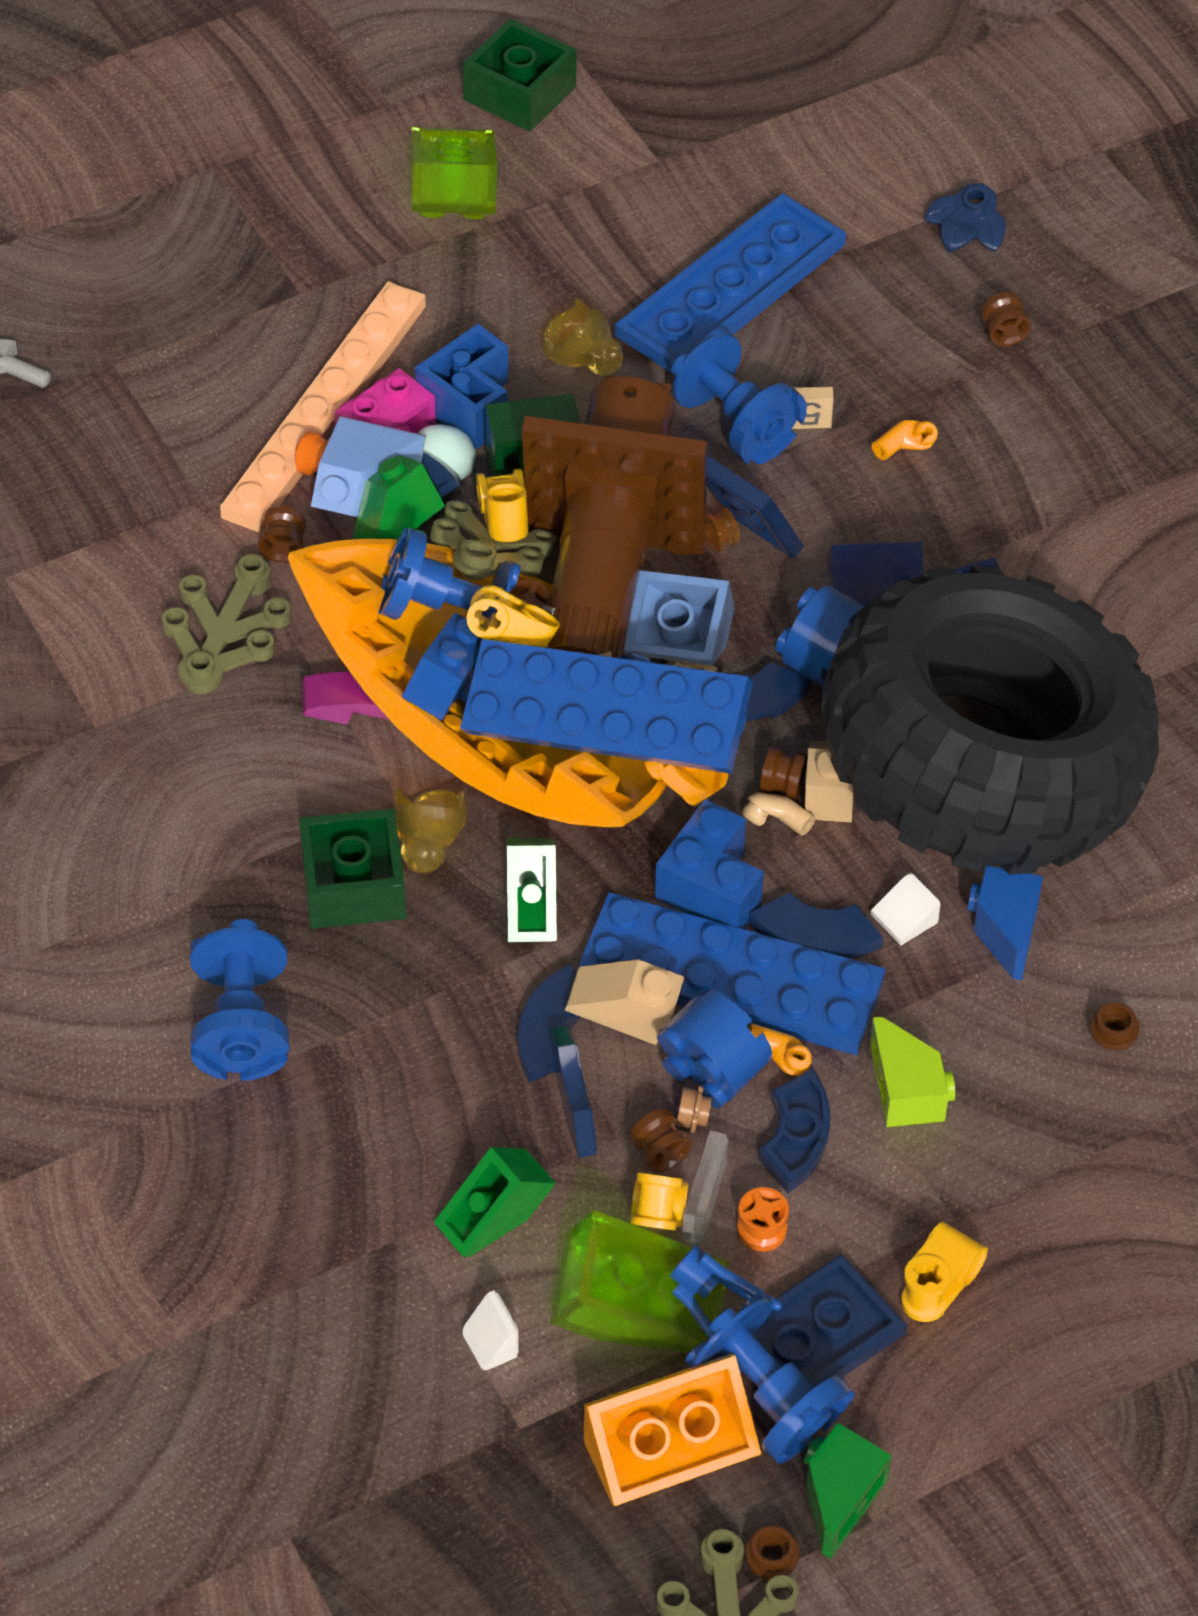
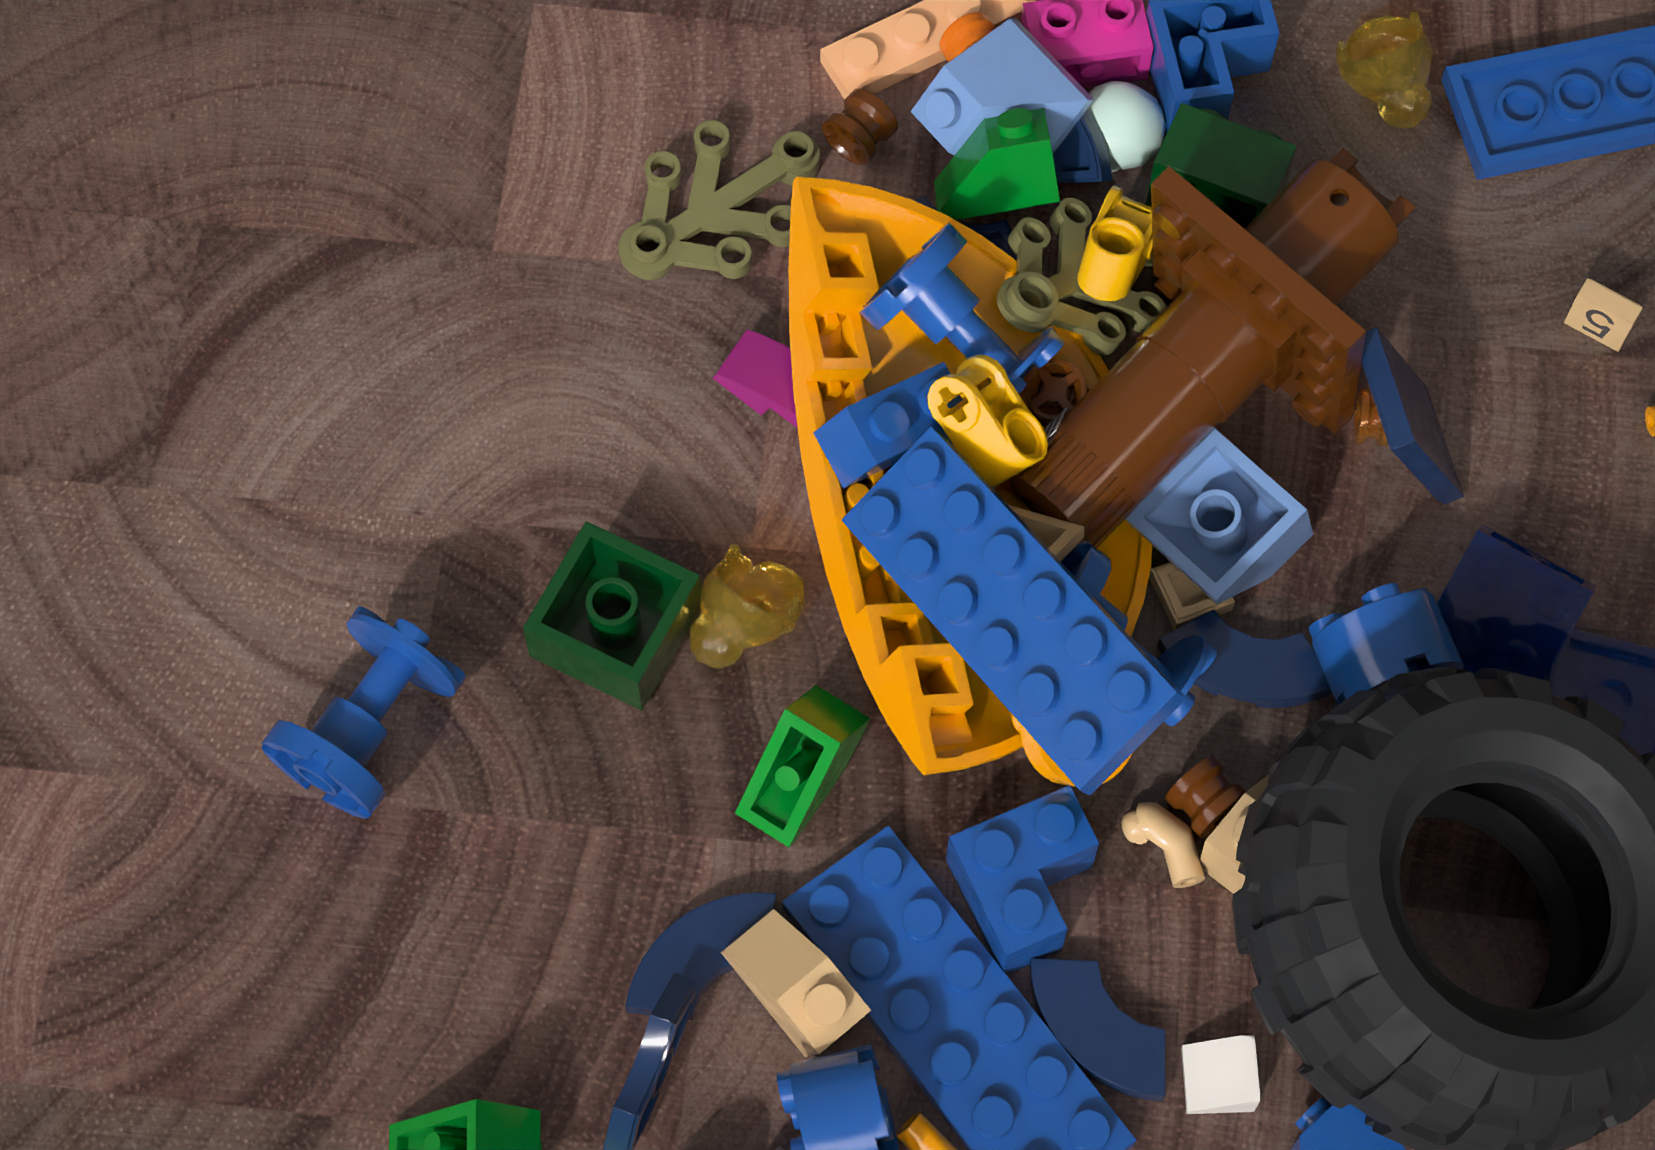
camera: 35 degrees right, 15 degrees up
(759, 416) = (1523, 301): blue piece -> none

